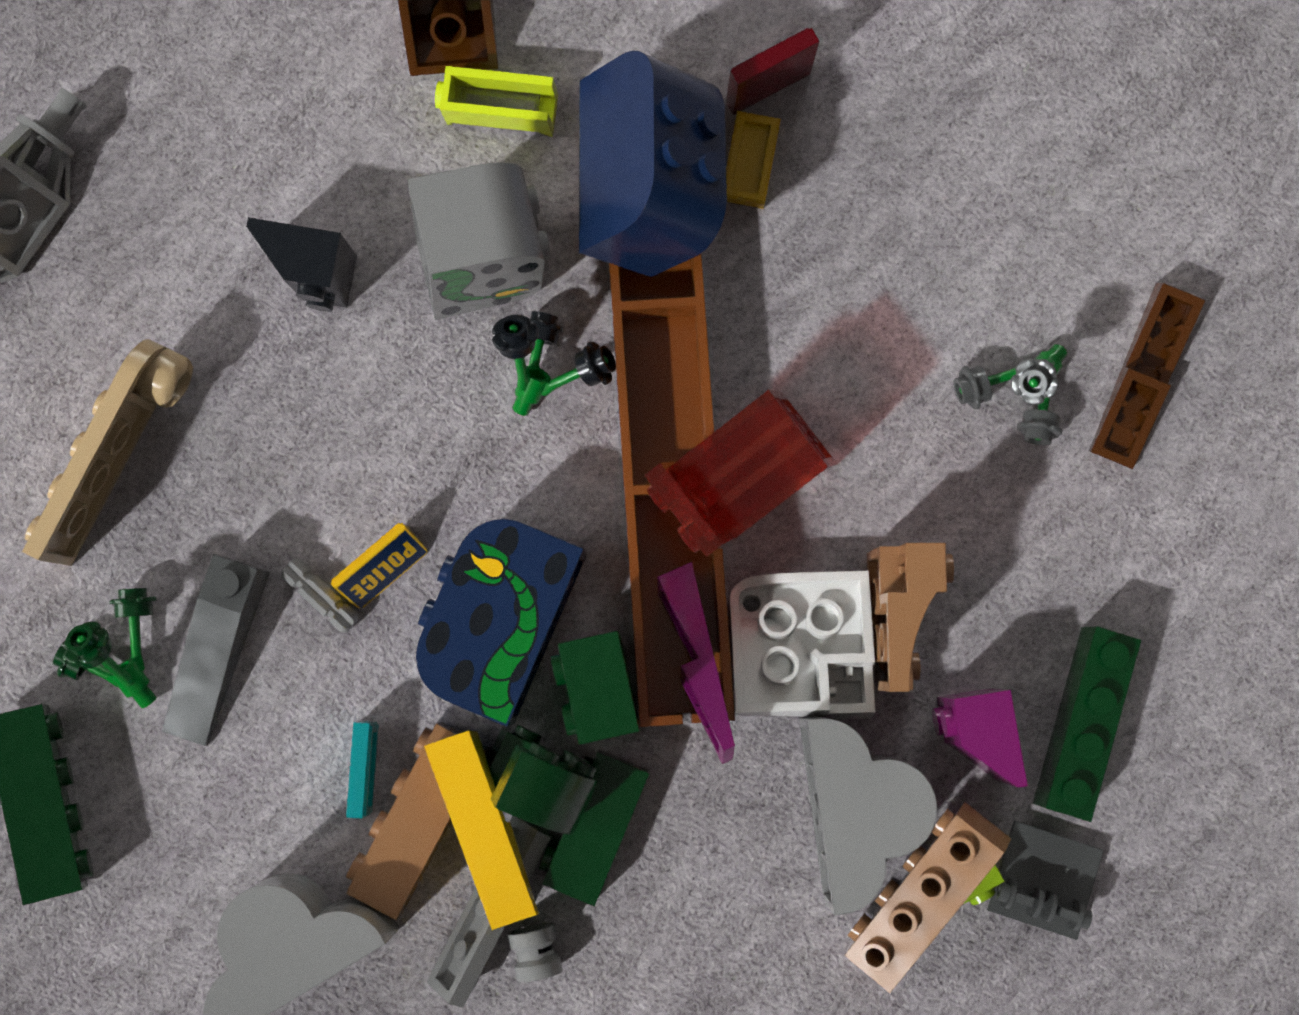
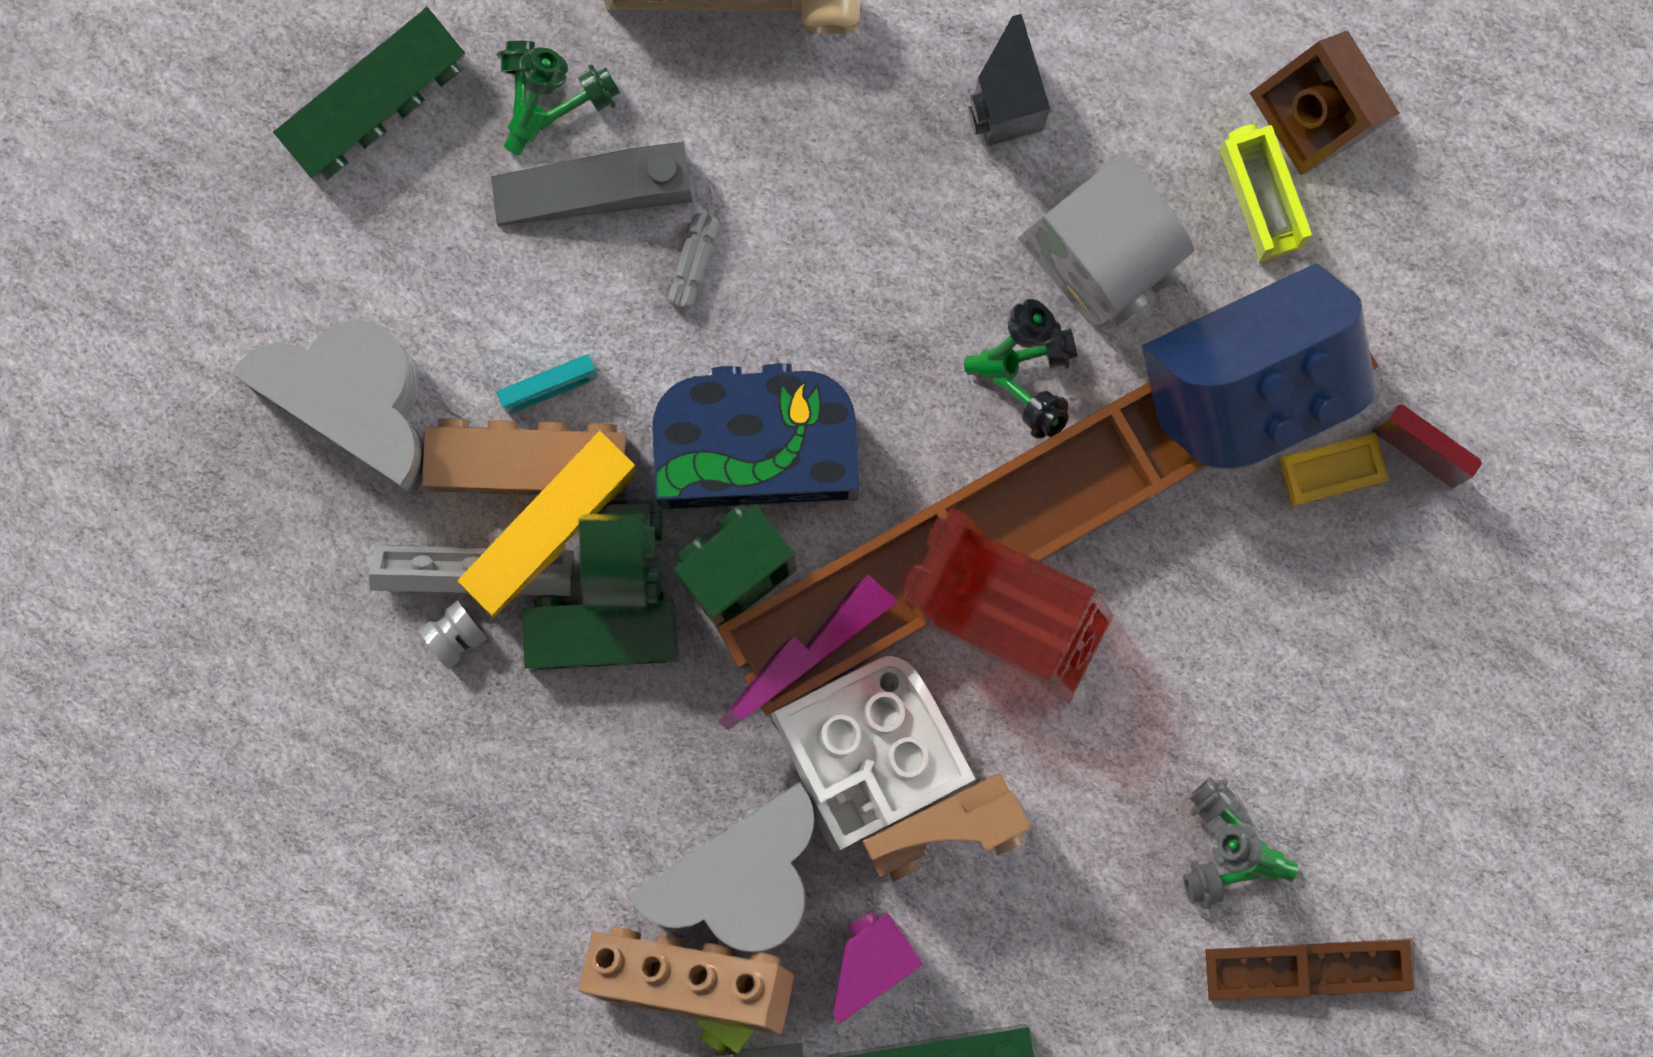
camera: 65 degrees right, 0 degrees up
(379, 566) = (749, 304): slope -> none

